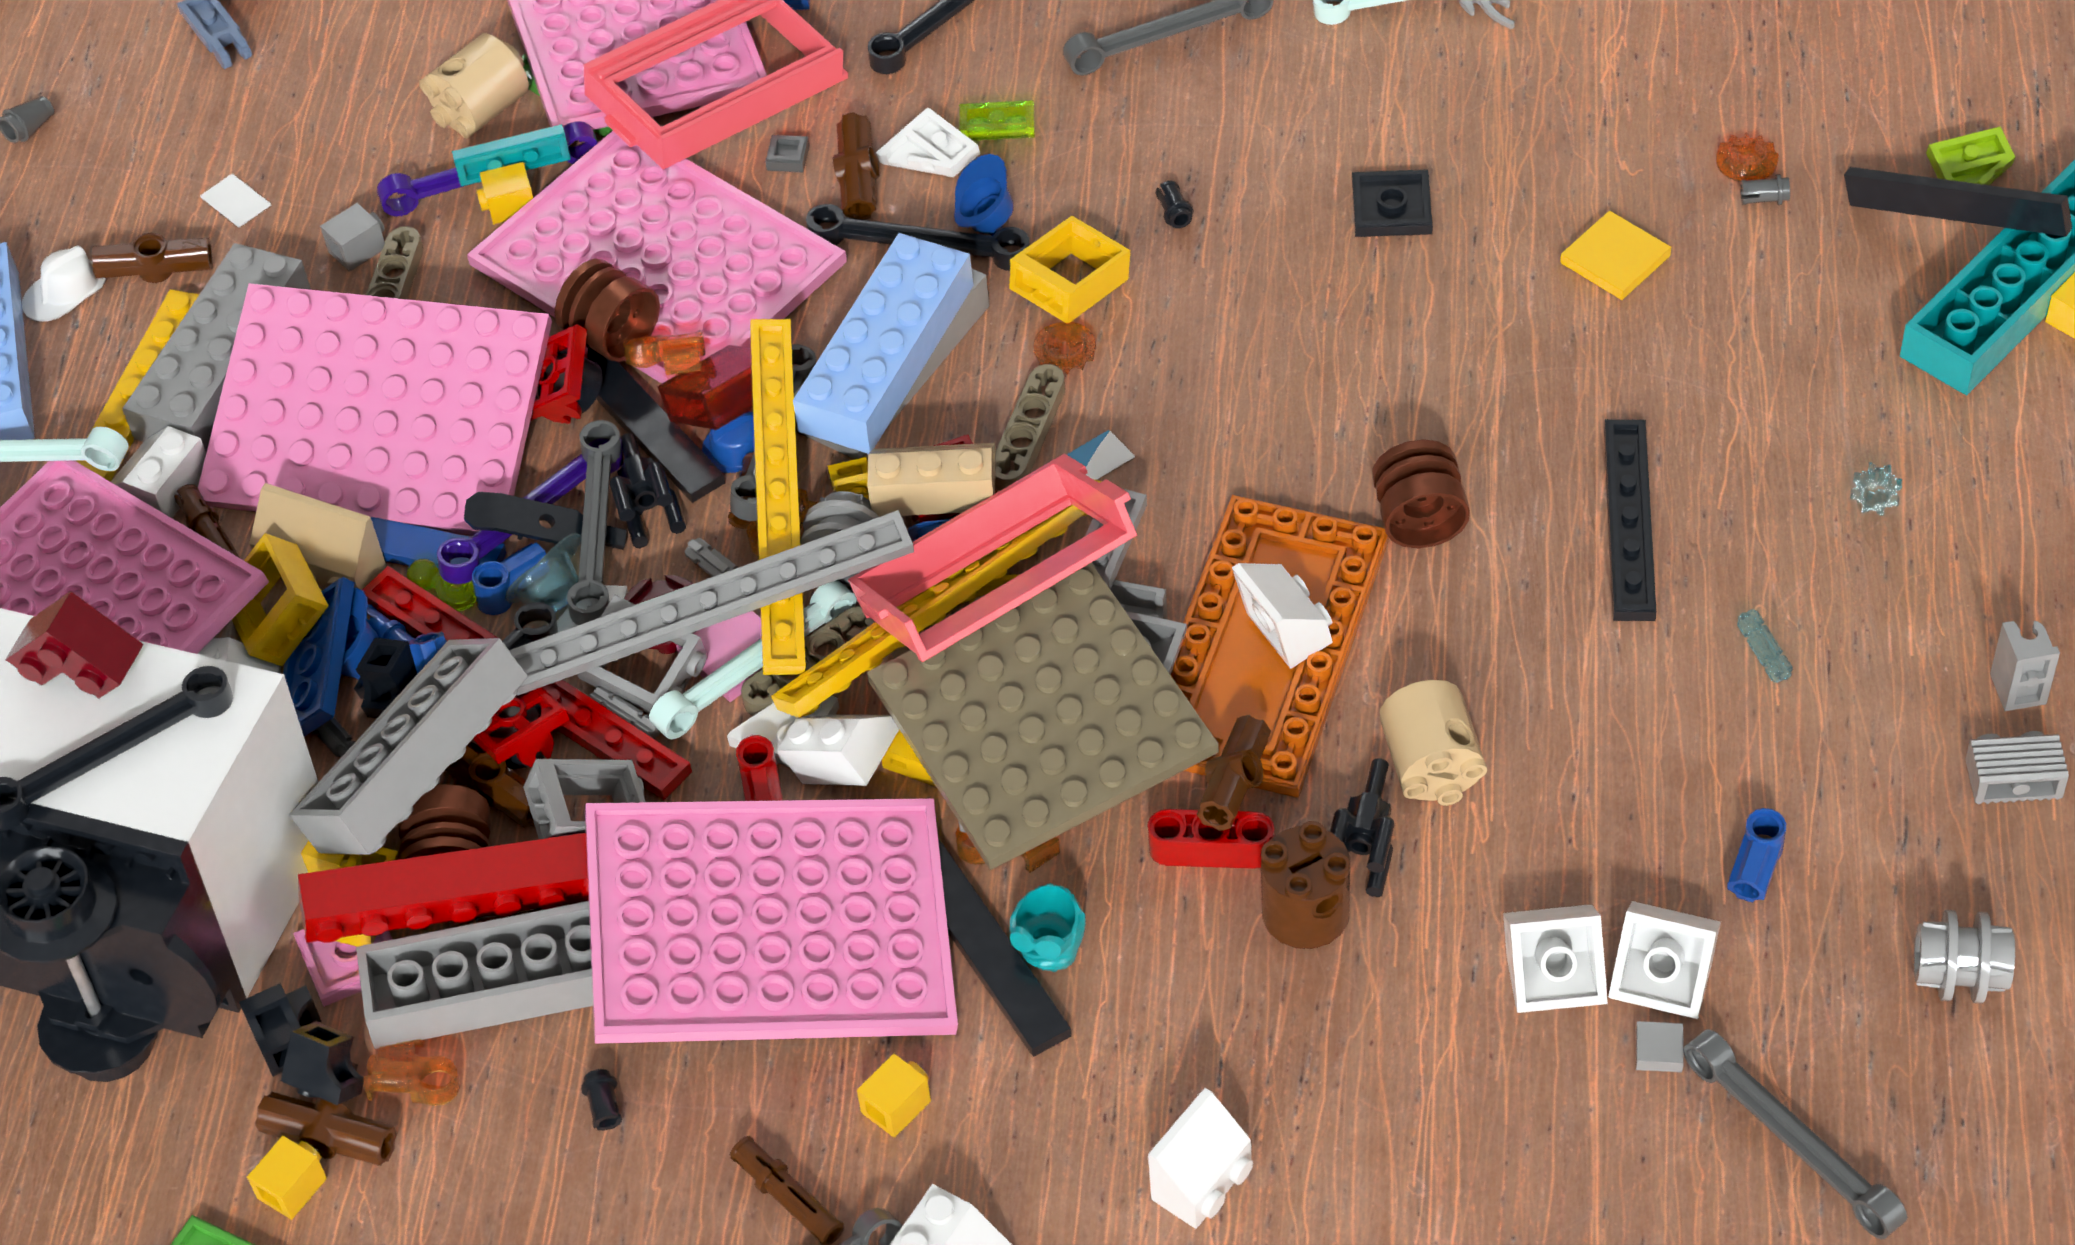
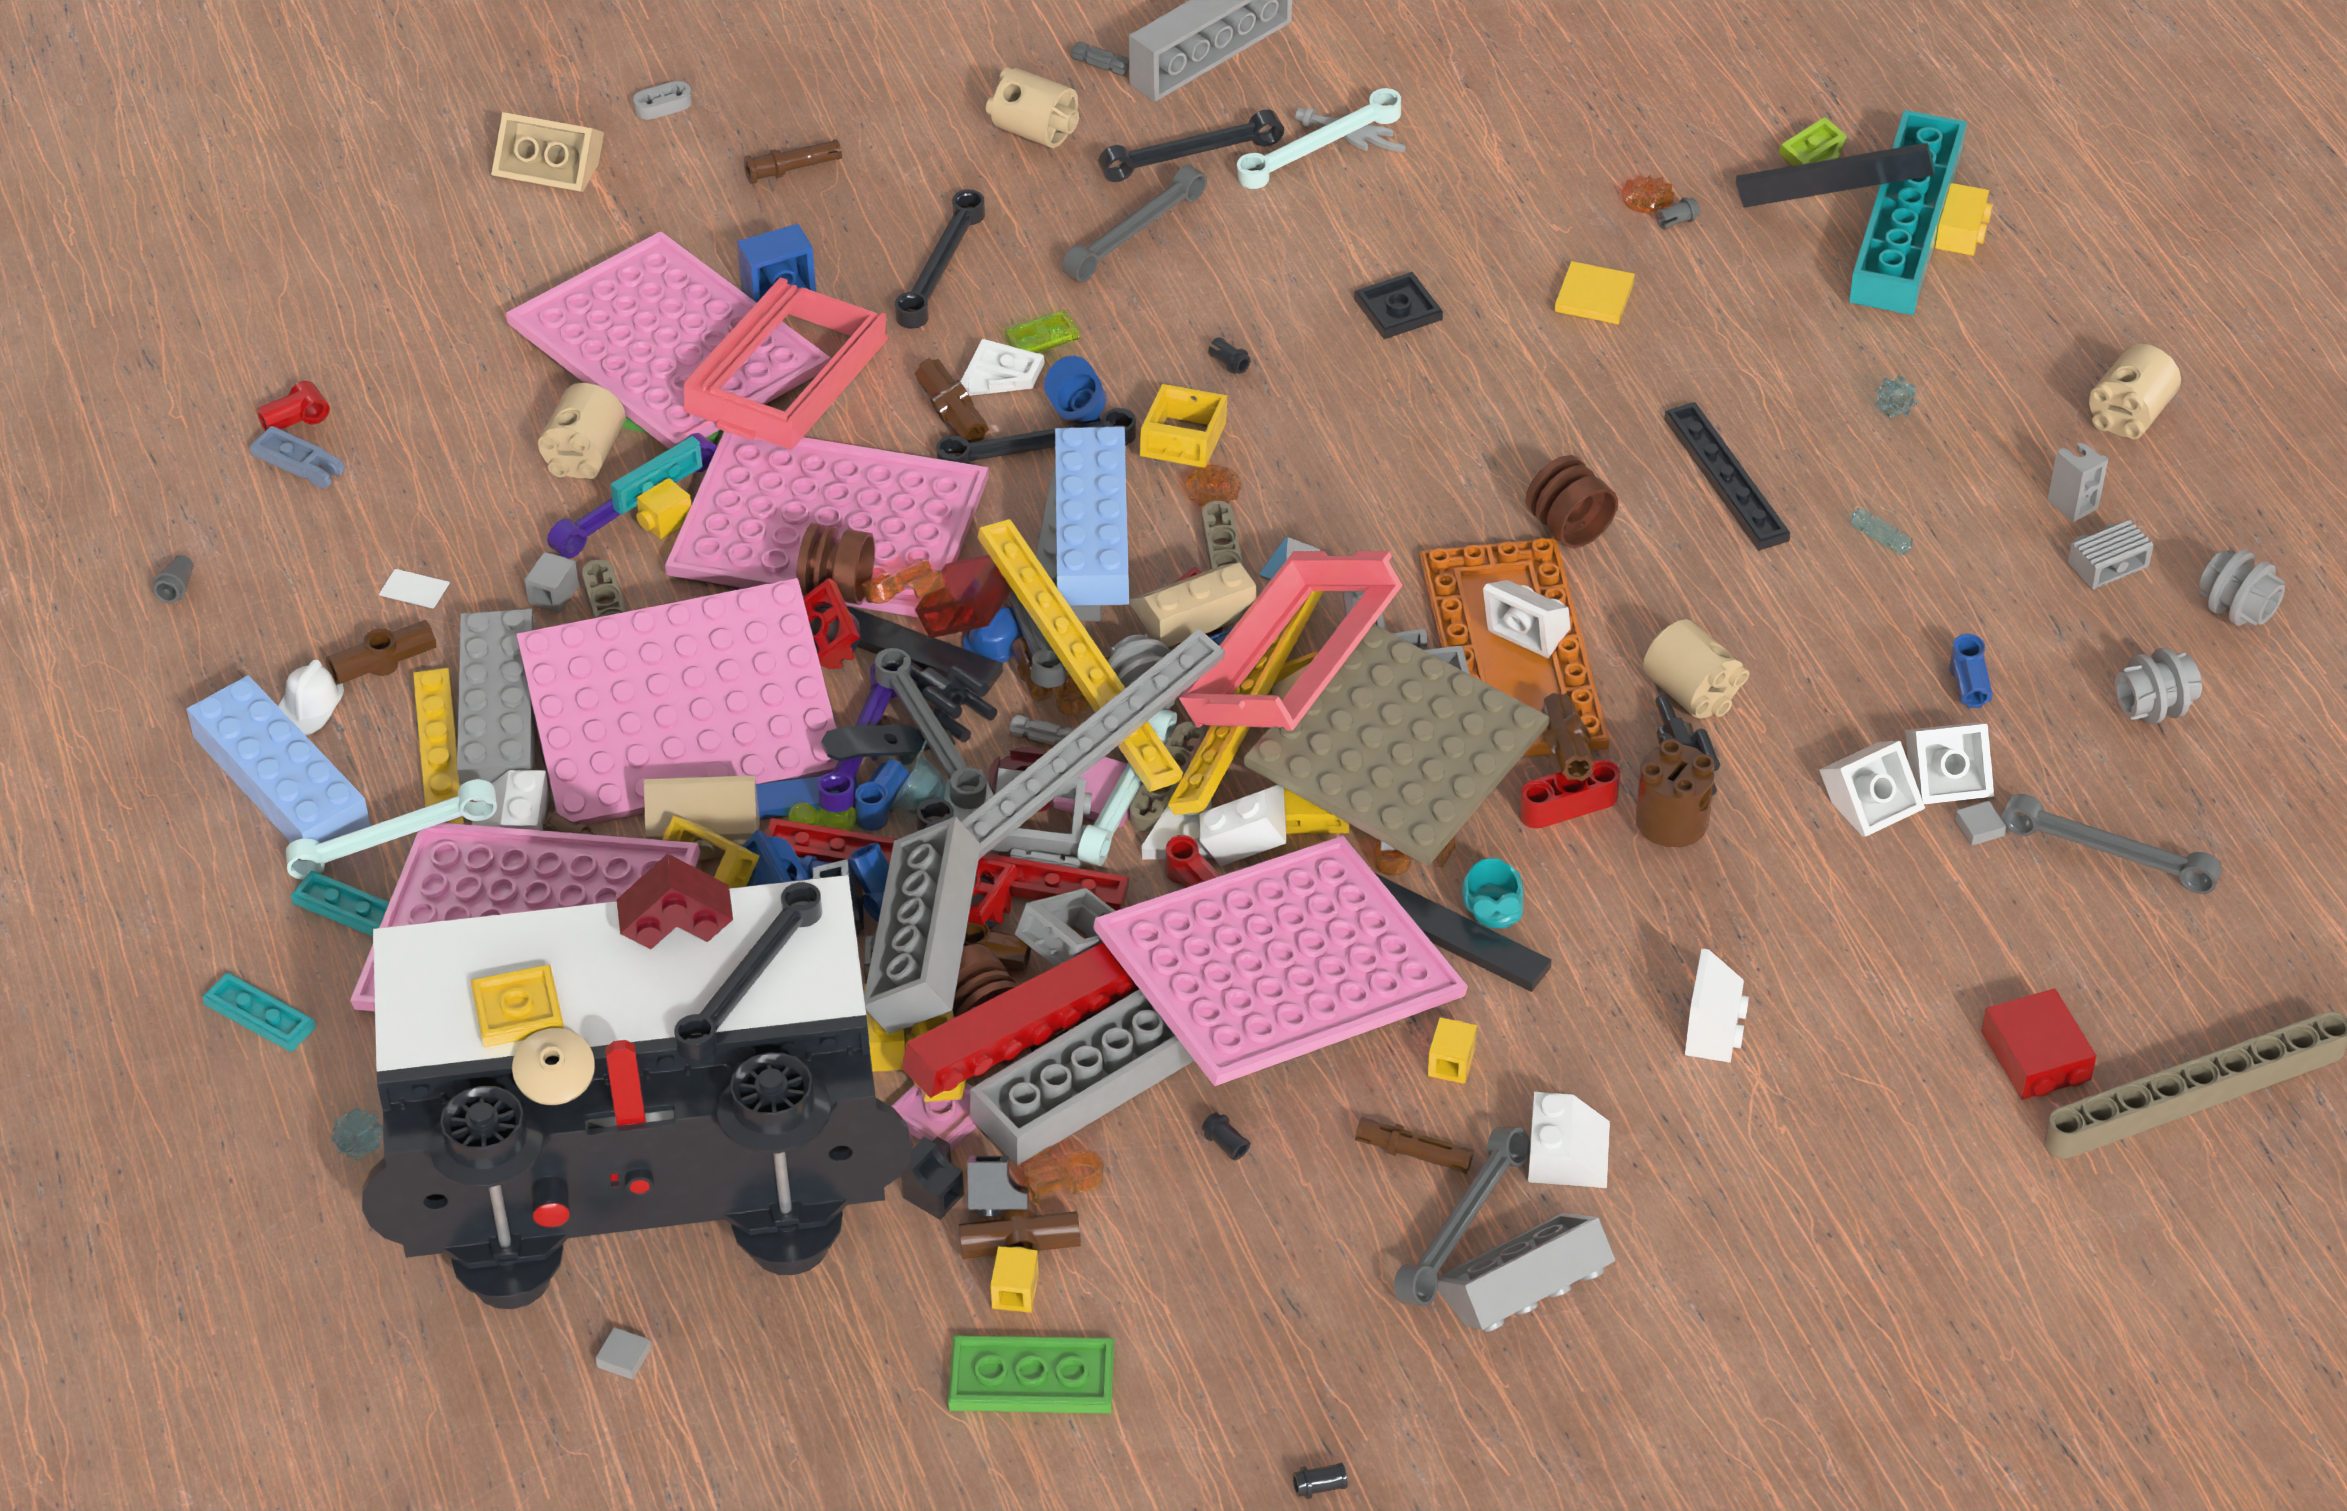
camera: 30 degrees left, 5 degrees down
(787, 153) = (879, 410): dark grey tile -> none
(850, 476) = (1112, 630): yellow bracket -> none

